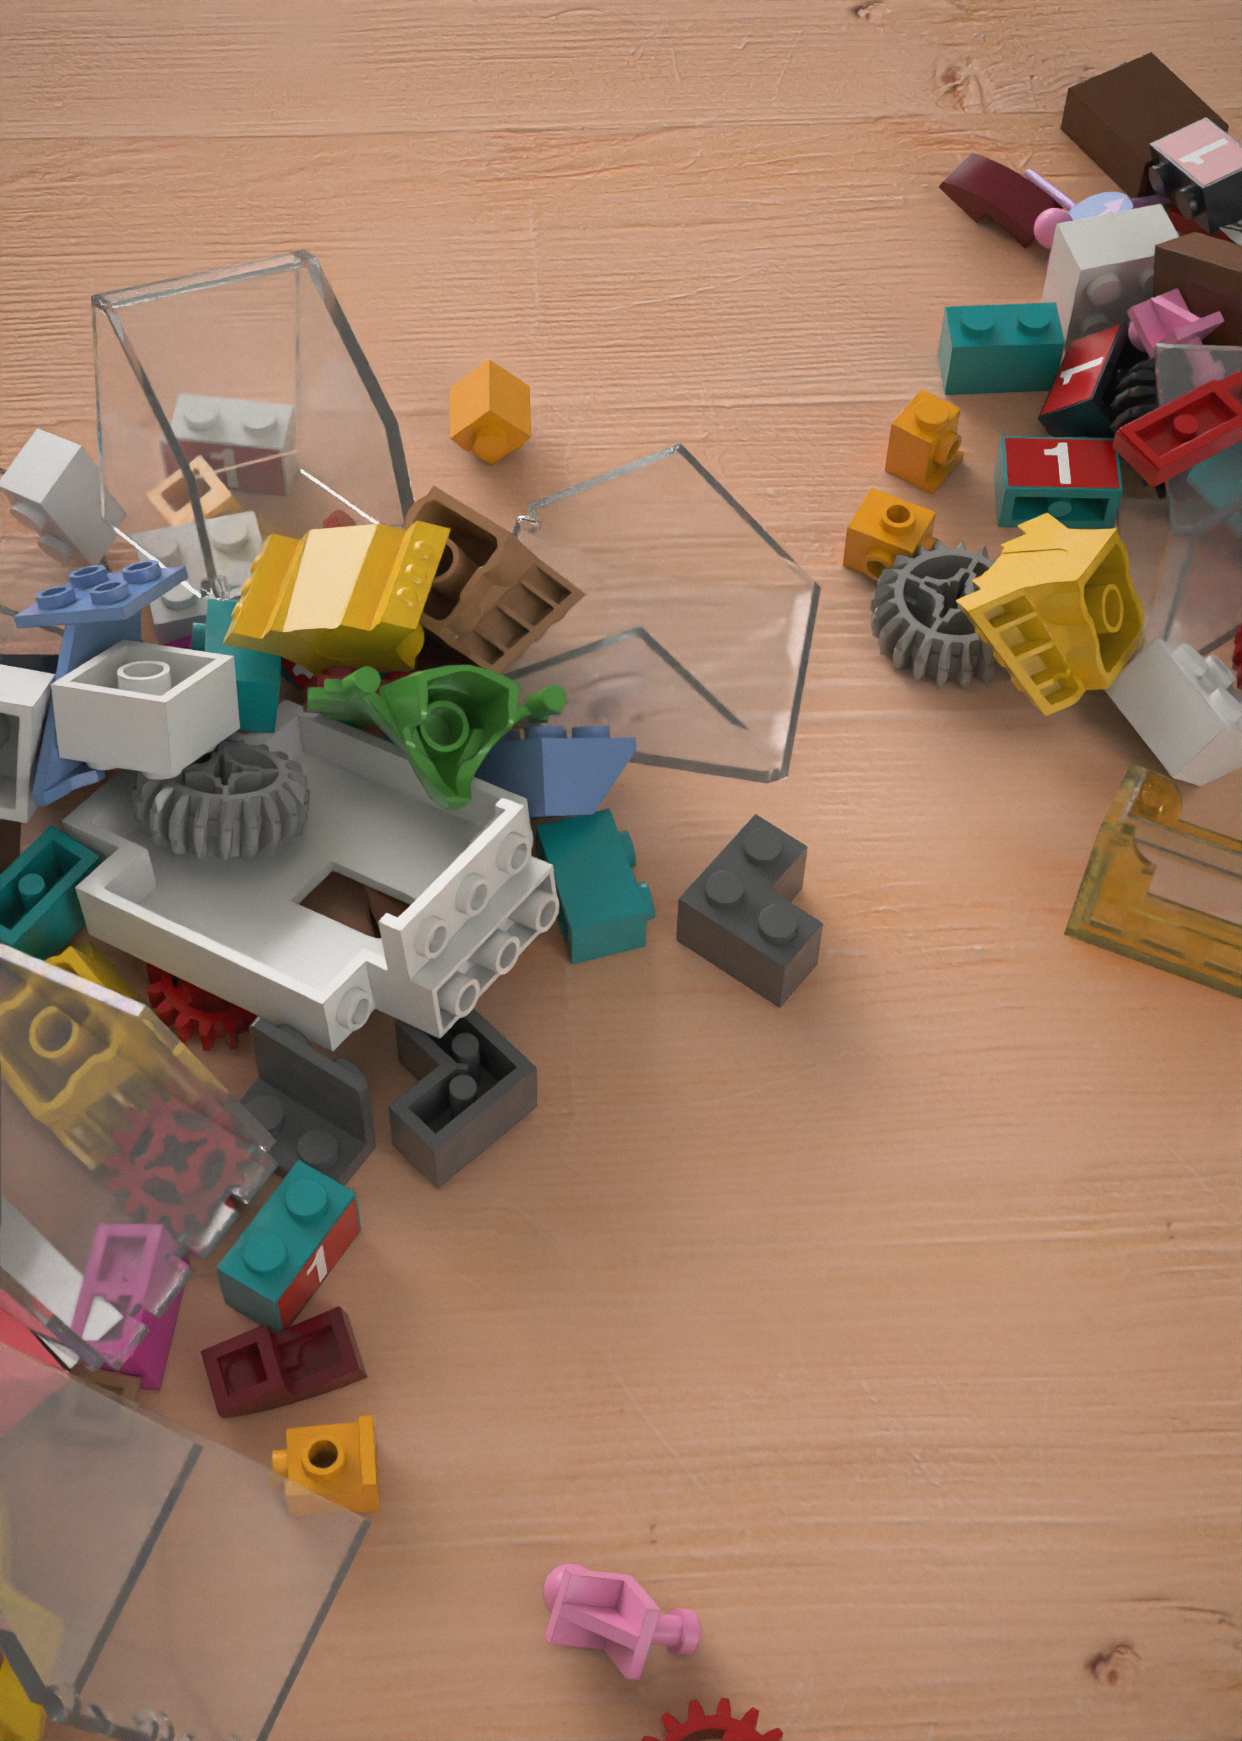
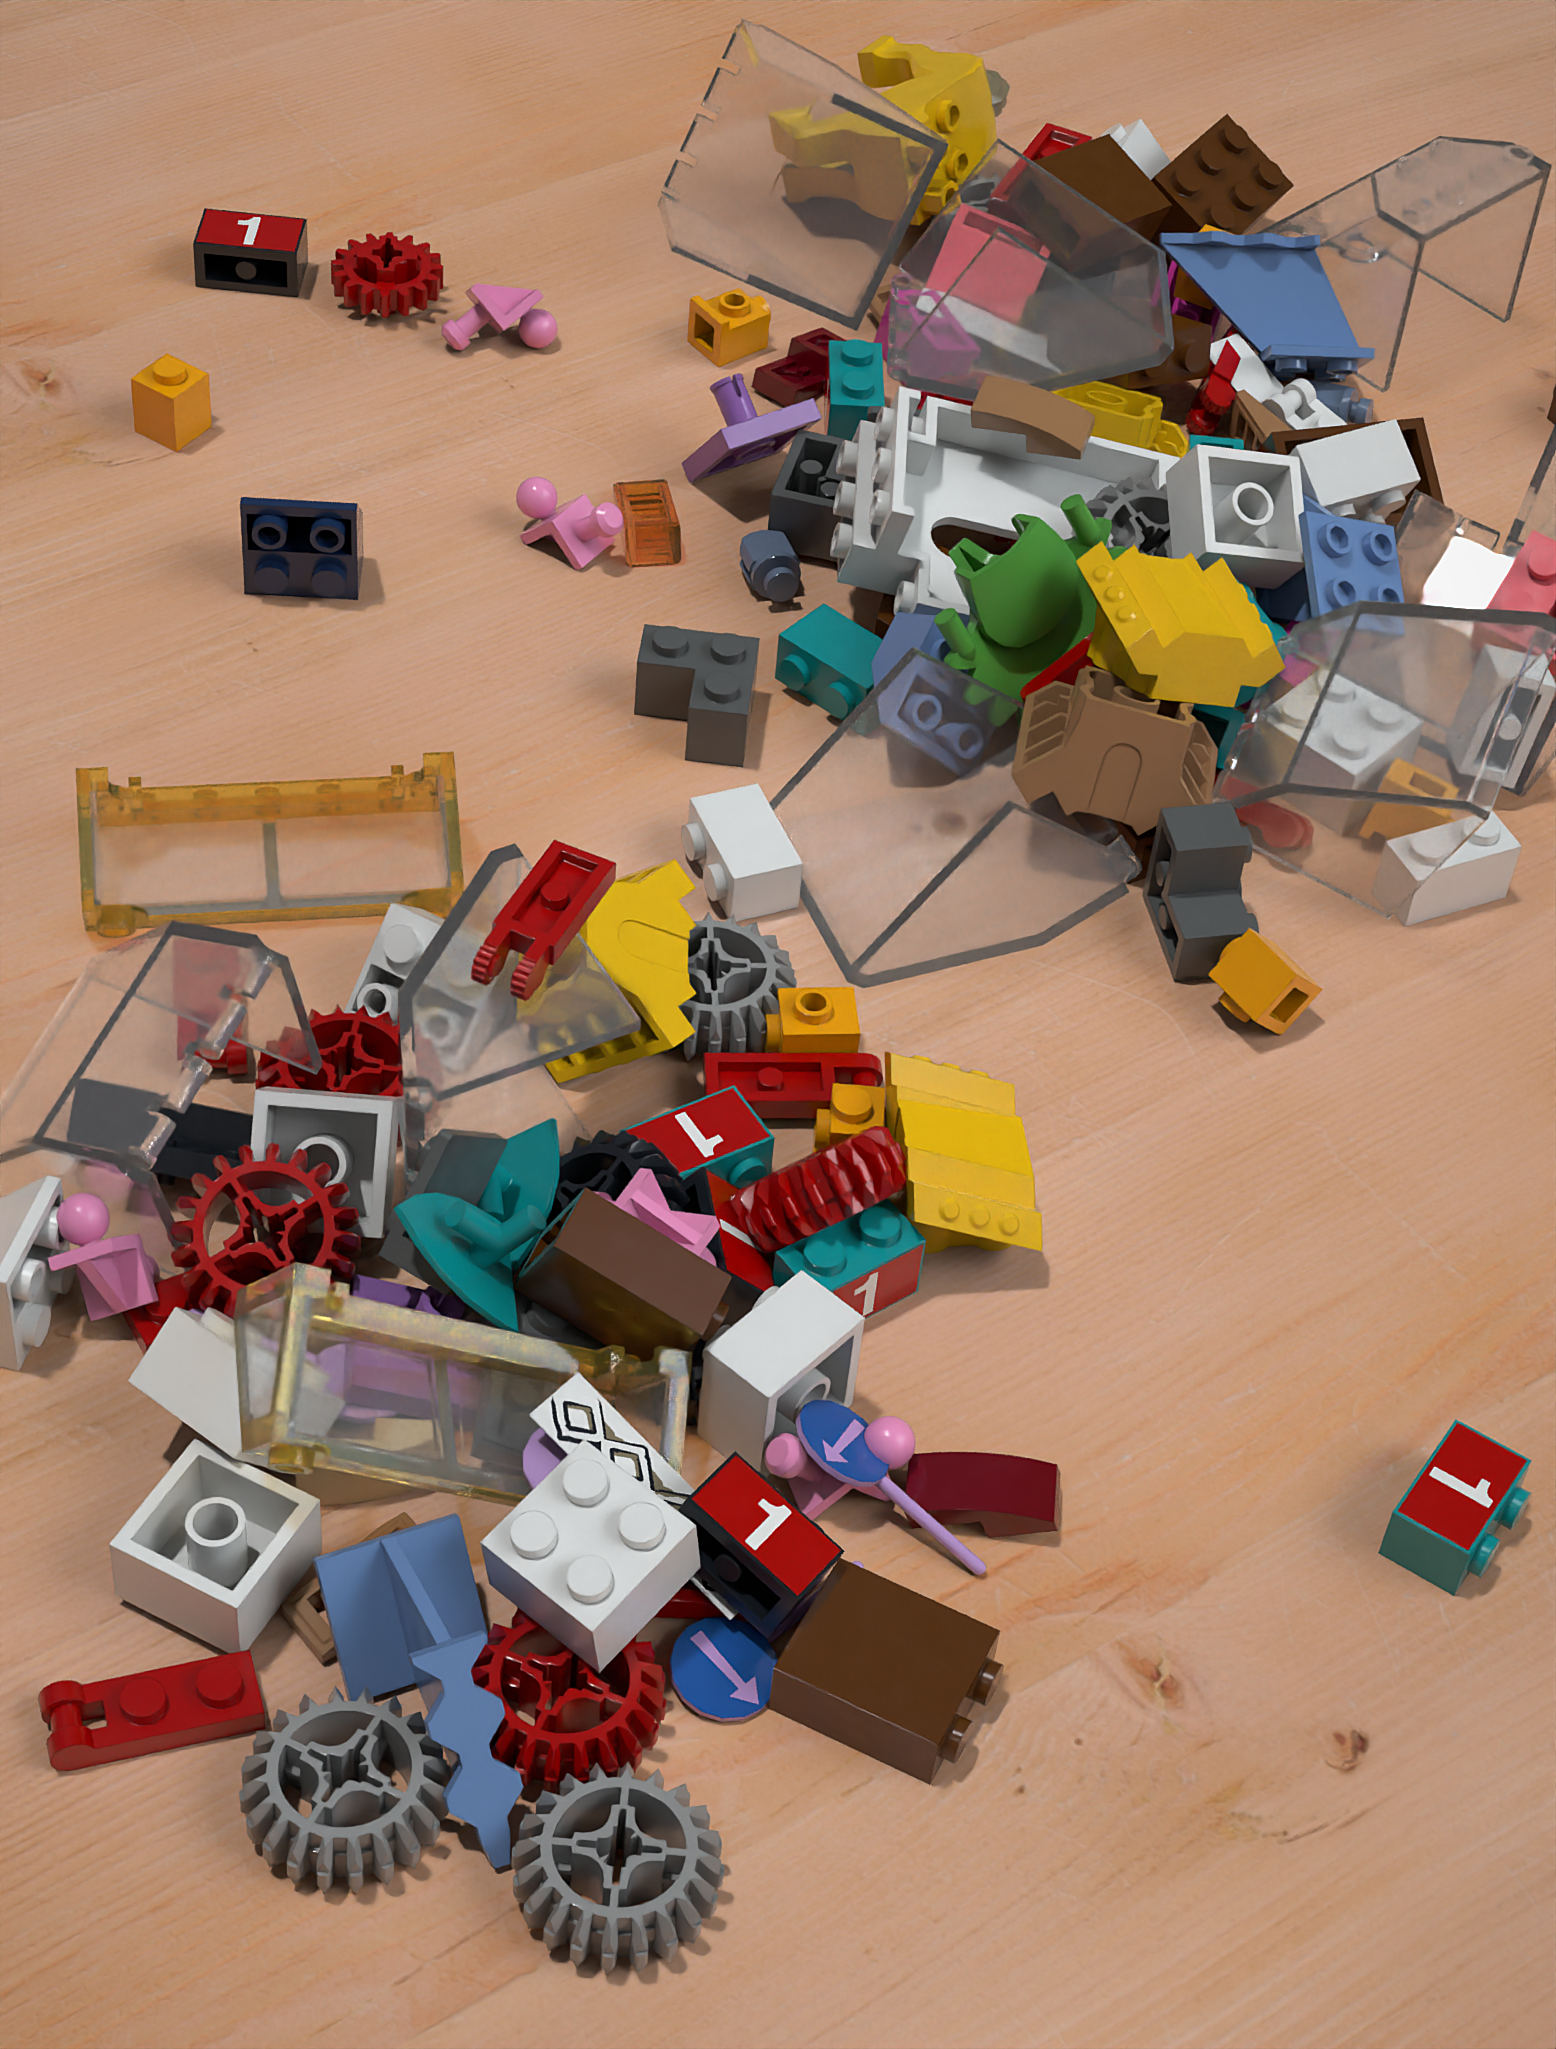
camera: 145 degrees right, 10 degrees down
(234, 928) = (1048, 420): none -> medium nougat slope
(475, 1204) = (746, 434): none -> medium lavender tile
(482, 475) = (1197, 886): none -> dark grey brick
(564, 1057) = (770, 564): none -> sand blue arm
(664, 1152) = (650, 523): none -> clear orange slope
(696, 61) = (1455, 1508): none -> brick
(745, 1211) = (575, 525): none -> bright pink piece
(835, 725) = (743, 853): none -> white brick
(868, 363) = (963, 1156): none -> yellow slope
(958, 512) = (789, 1082): none -> red plate
(1006, 342) = (821, 1189): none -> red gear
(1078, 1283) = (301, 548): none -> dark blue slope
(1125, 1636) = (171, 402): none -> light orange brick

